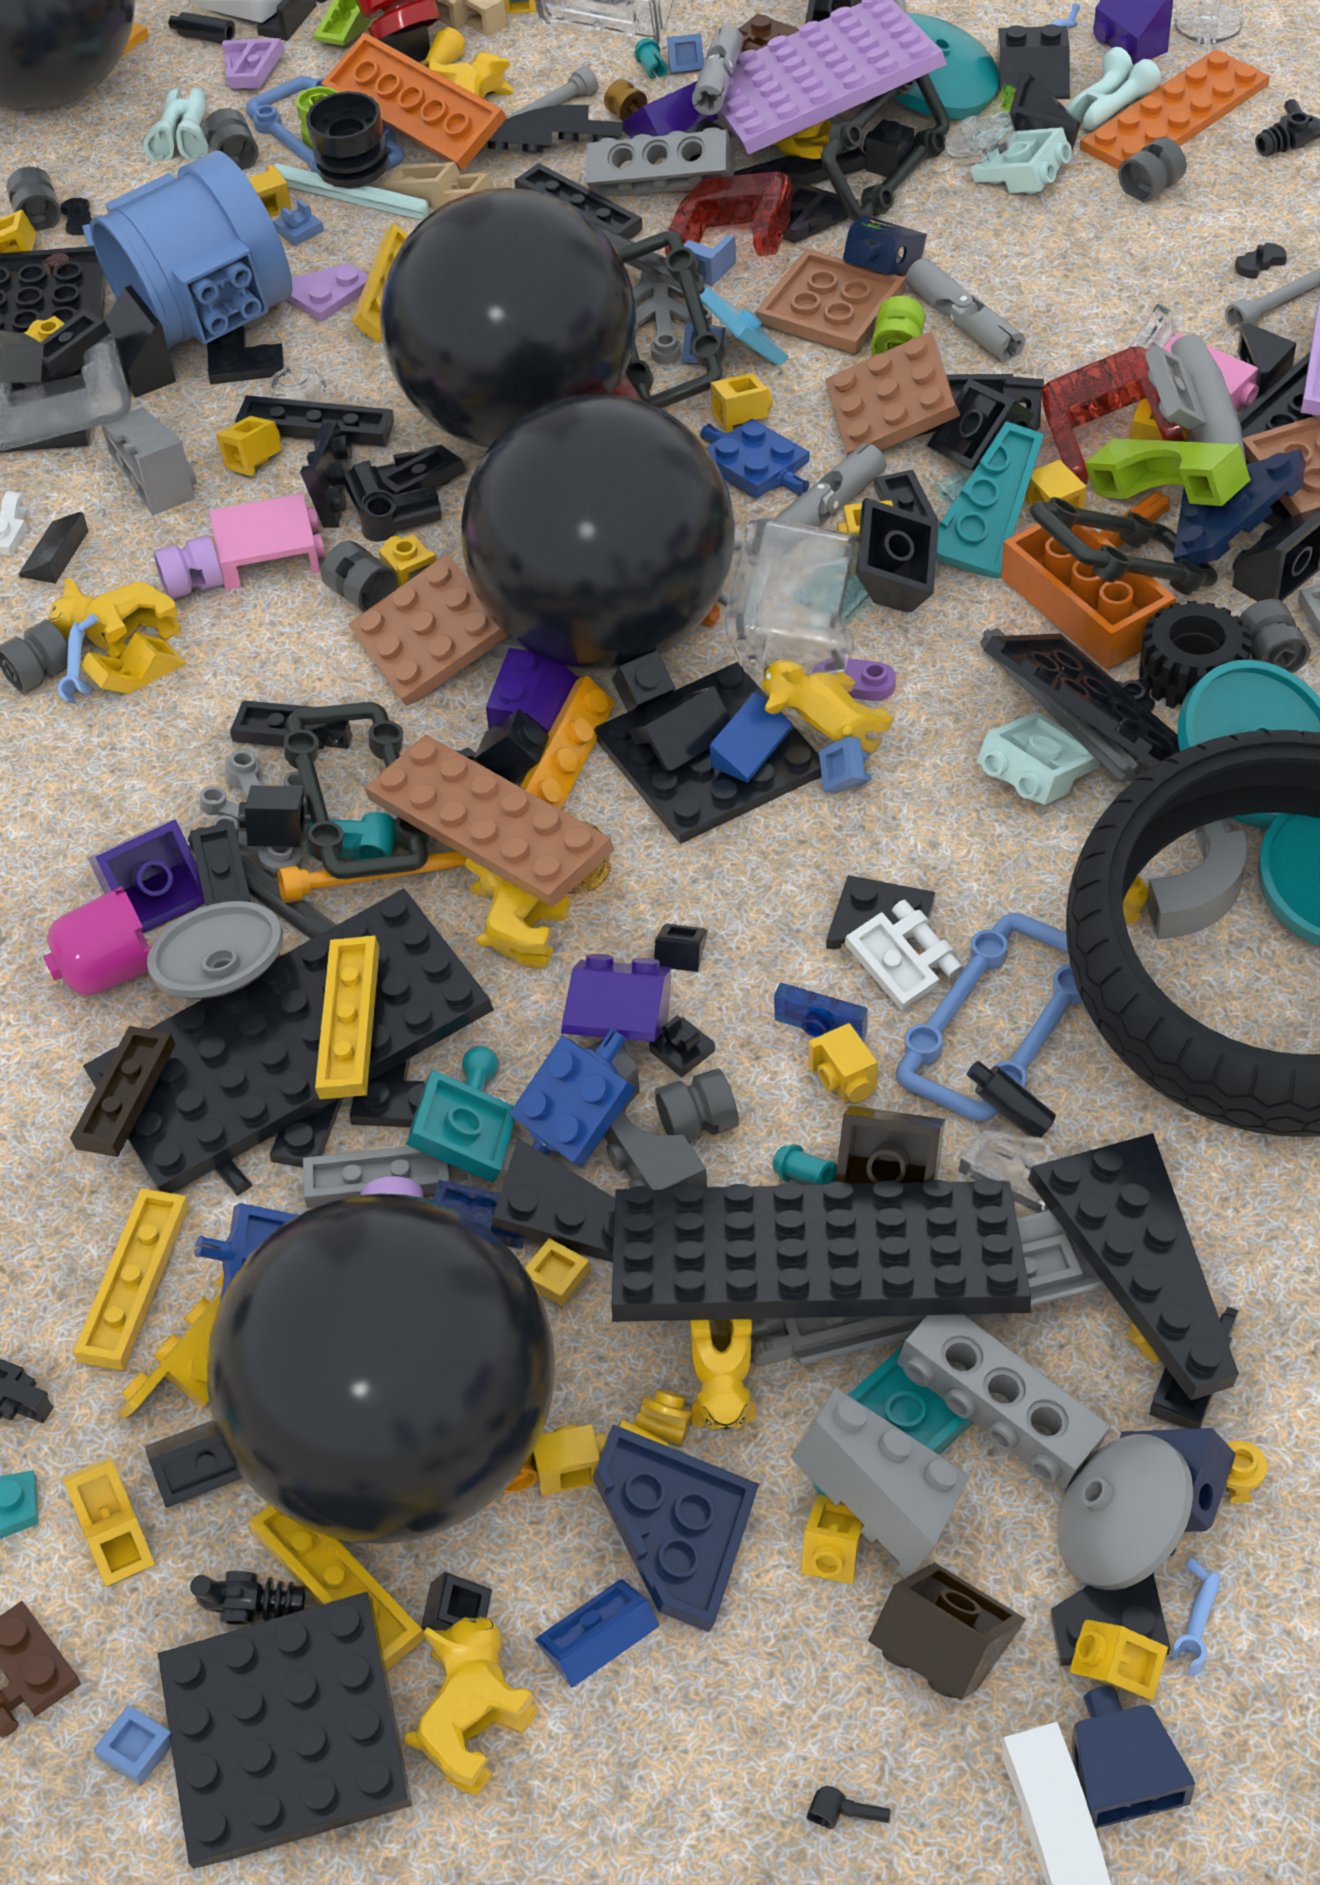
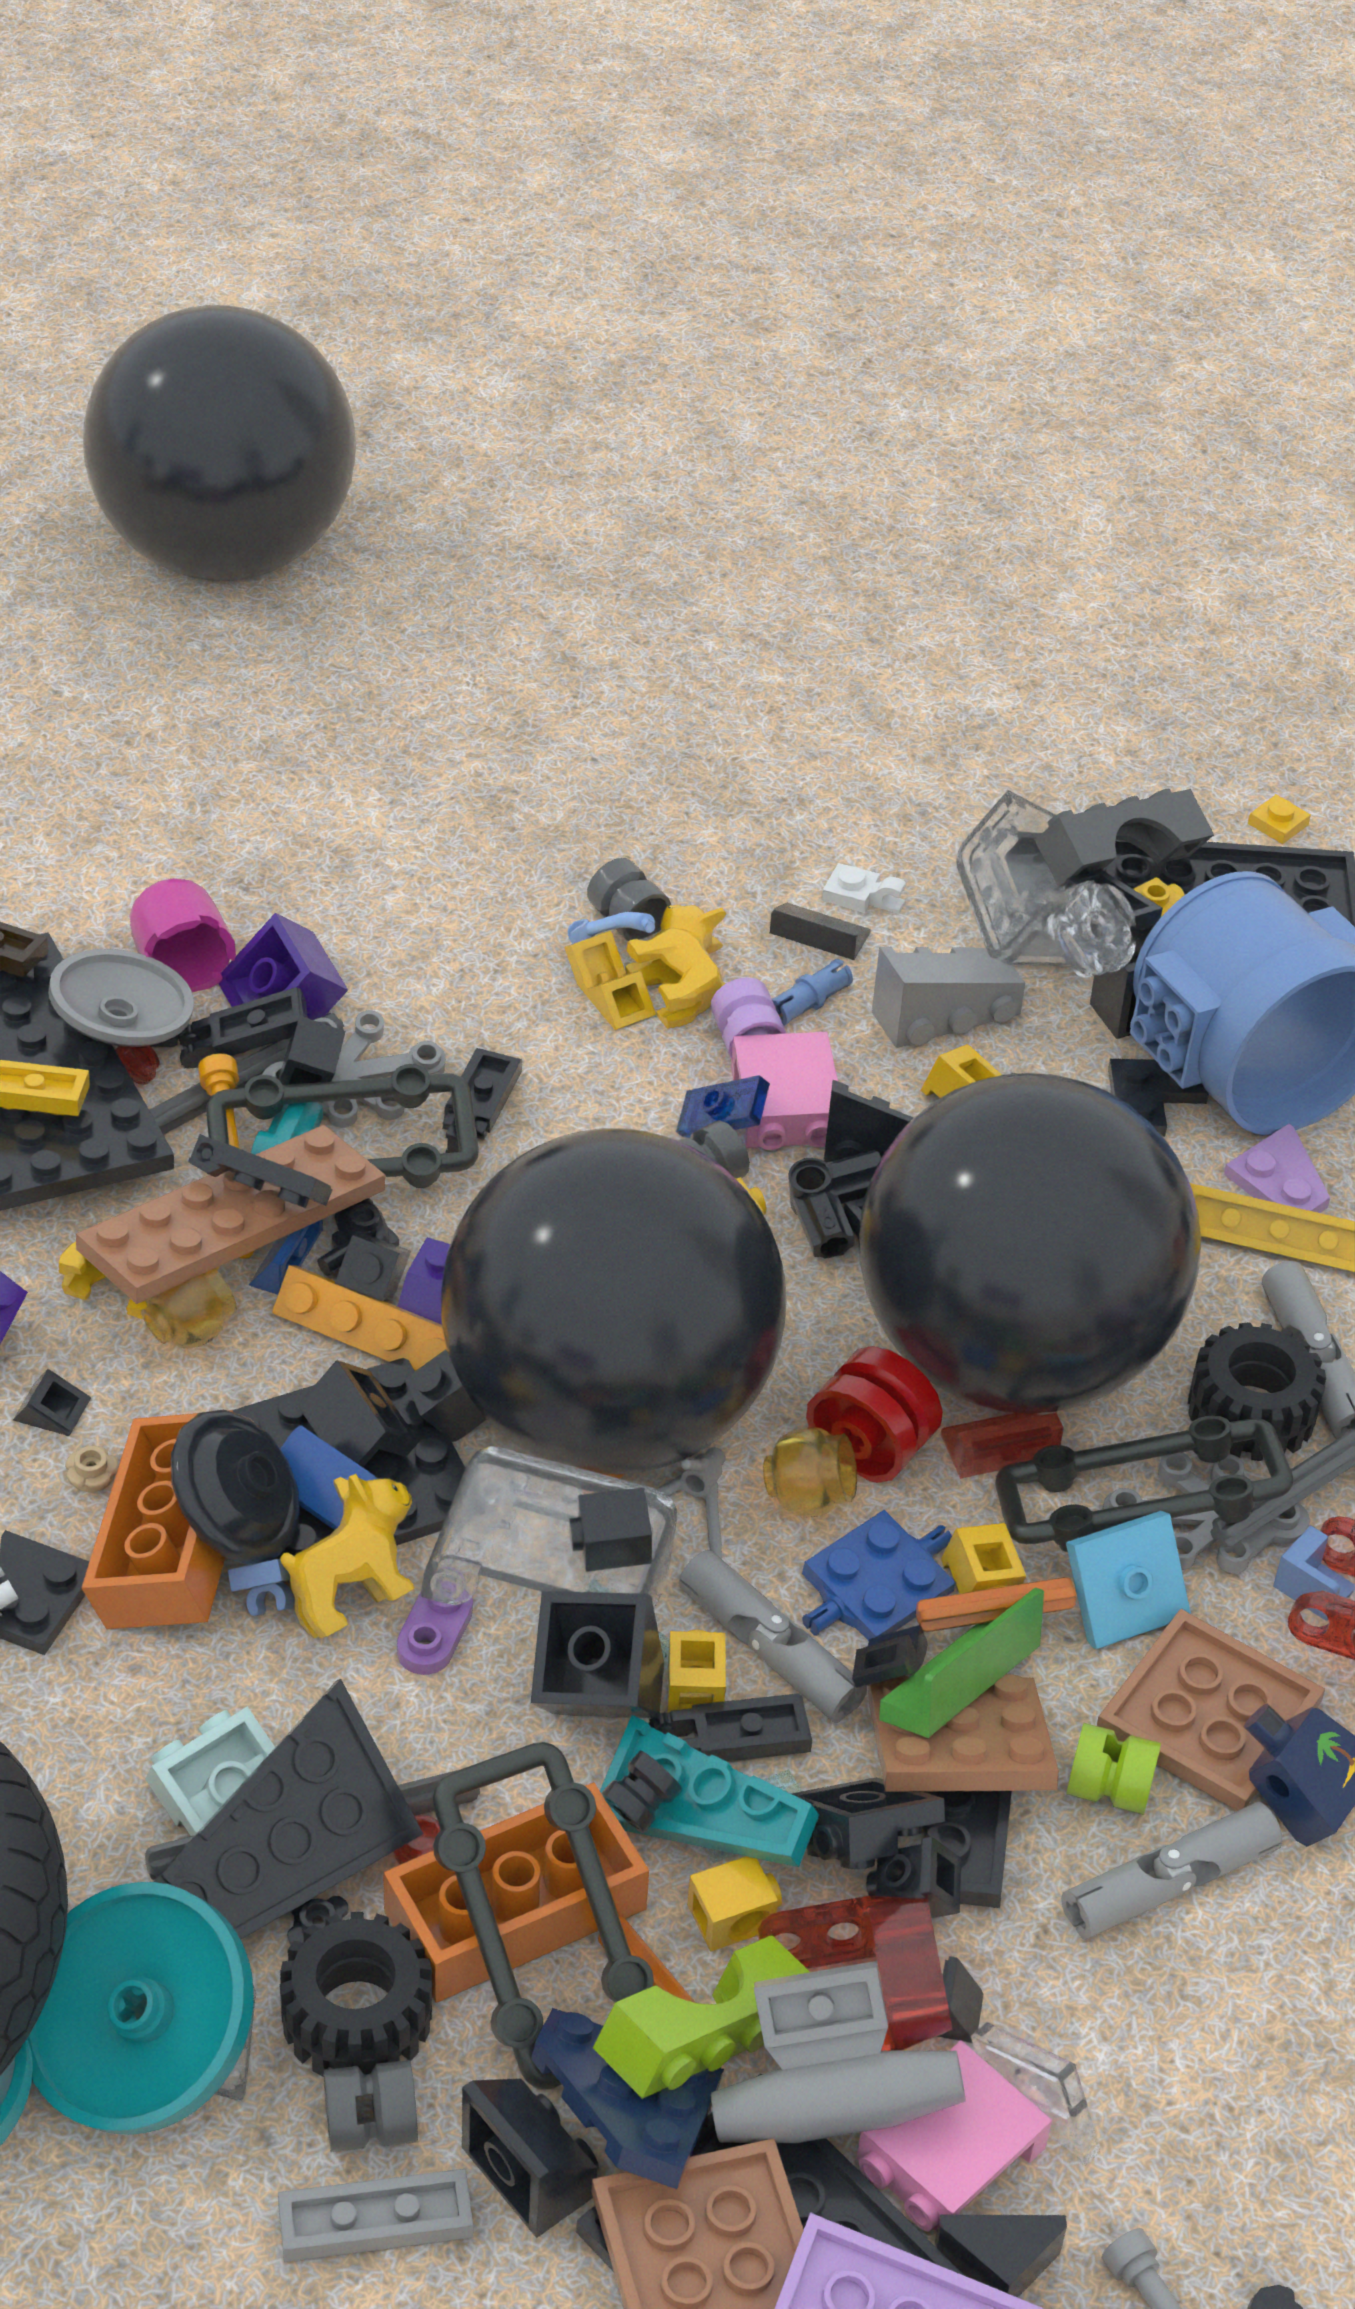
camera: 90 degrees right, 5 degrees down
(131, 330) = (1072, 930): none -> clear plate
(134, 544) = (812, 990): none -> medium blue pin
(301, 564) = (733, 1102): none -> clear blue plate
(466, 780) = (254, 1171): none -> black hinge
(746, 910) = (95, 1477): none -> tan plate
(780, 388) = (988, 1604): none -> orange axle
(796, 747) = (235, 1487): none -> black piece
(807, 524) = (612, 1529): none -> black brick
(811, 817) = (146, 1554): none -> orange brick
(845, 429) = (890, 1657): none -> black slope
(846, 384) = (965, 1669): none -> bright green panel
(1000, 520) = (641, 1791): none -> black wheel

